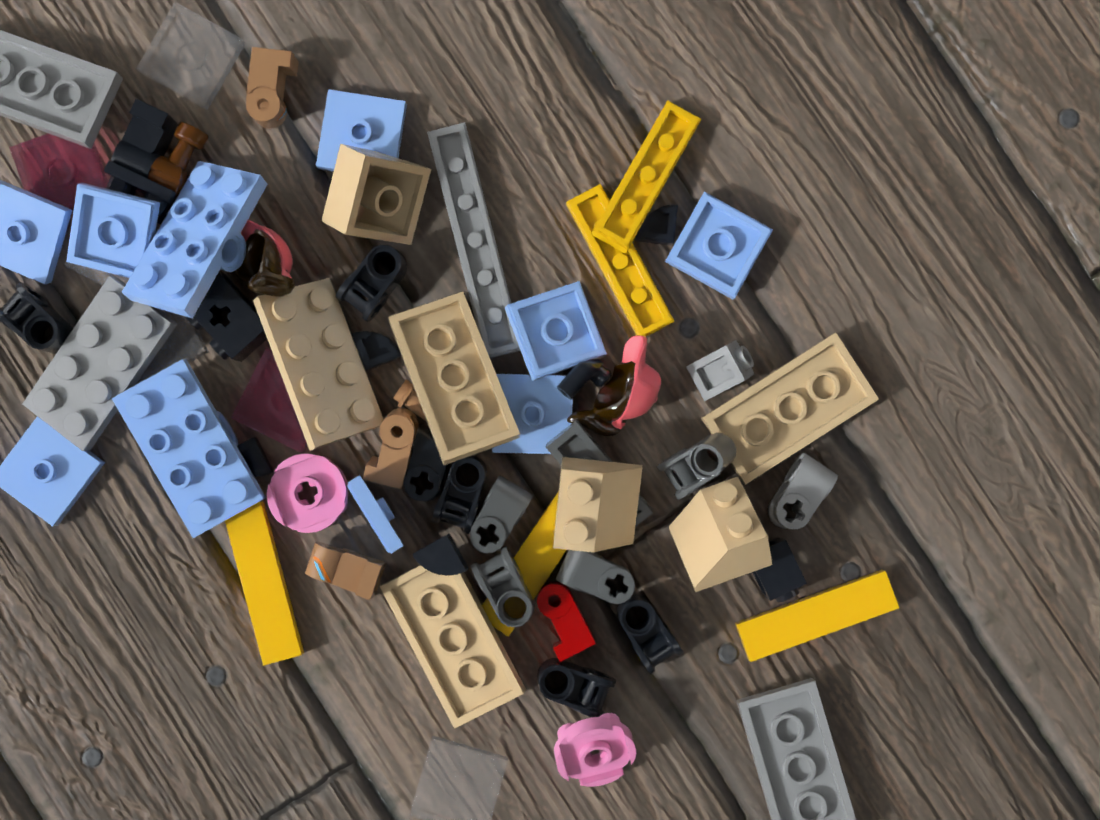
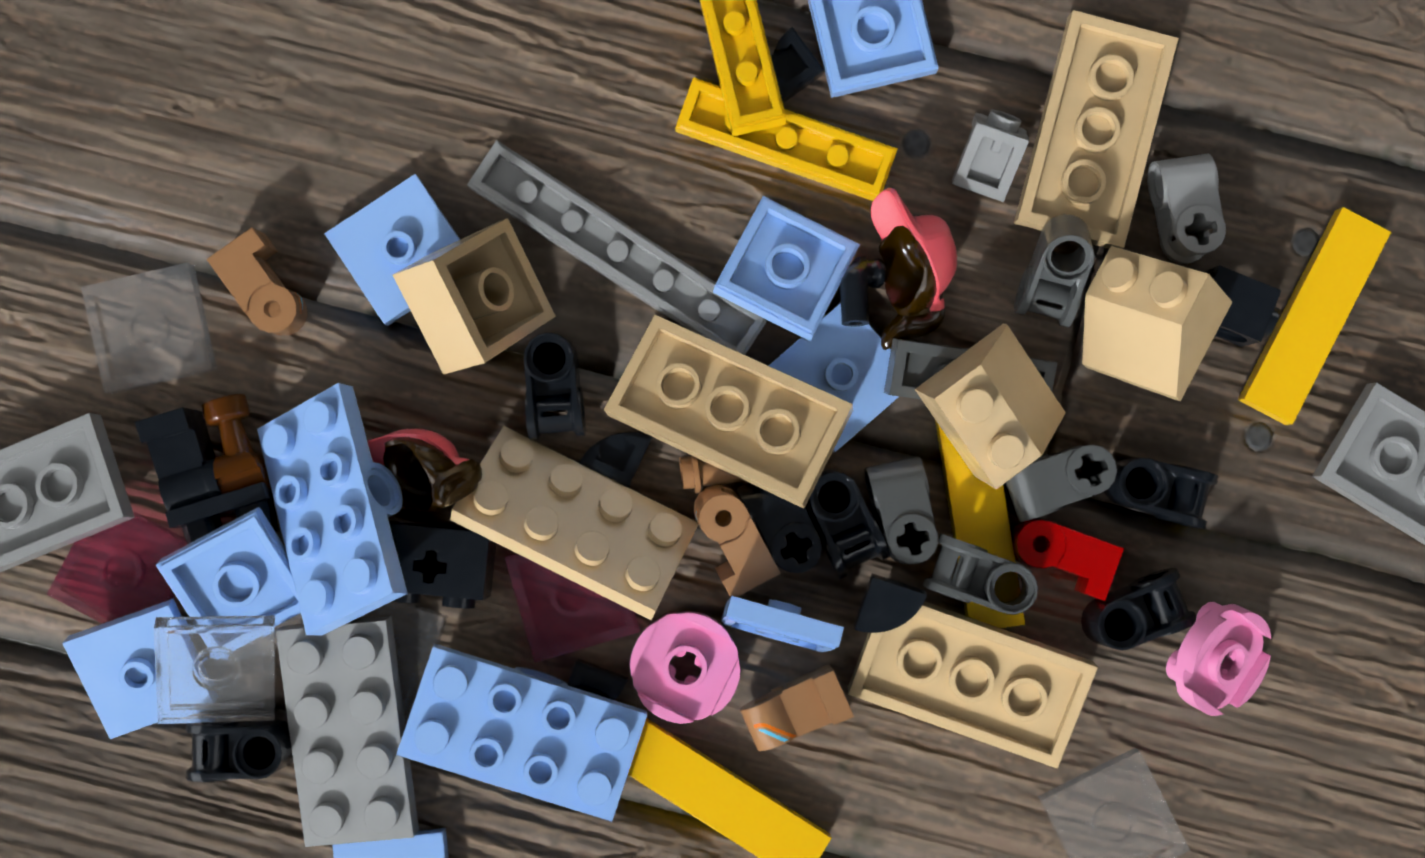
camera: 45 degrees left, 0 degrees up
(59, 267) = (215, 669): none -> clear tile

